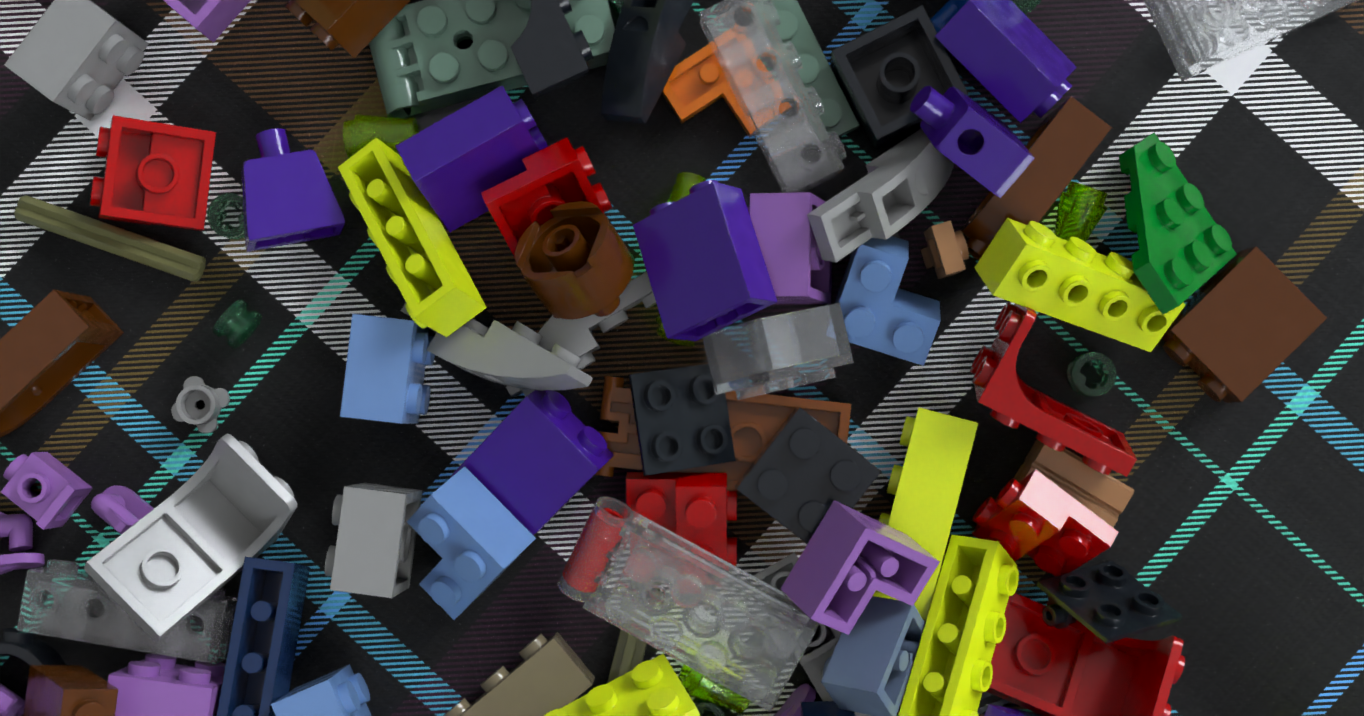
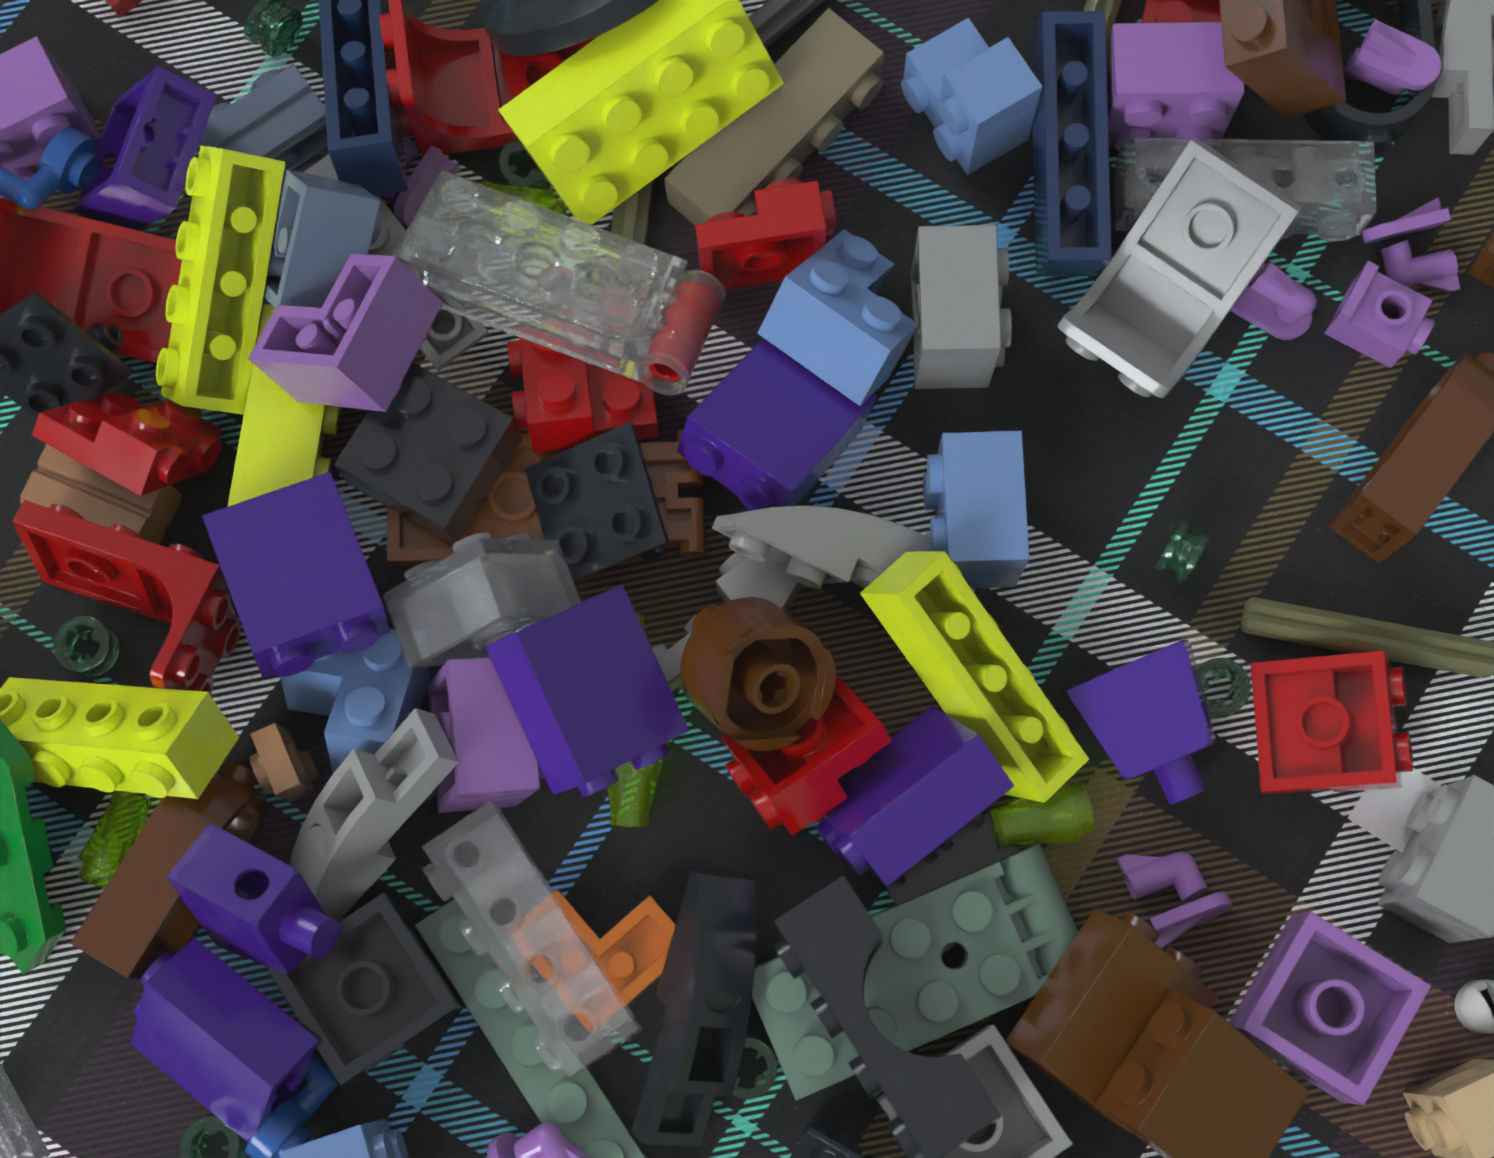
camera: 175 degrees right, 10 degrees down
(186, 404) = (1223, 435): light grey plate -> none
(310, 86) = (1151, 874): none -> medium lavender piece
(502, 622) = (763, 248): none -> red plate
(917, 383) = (297, 576): none -> dark purple brick

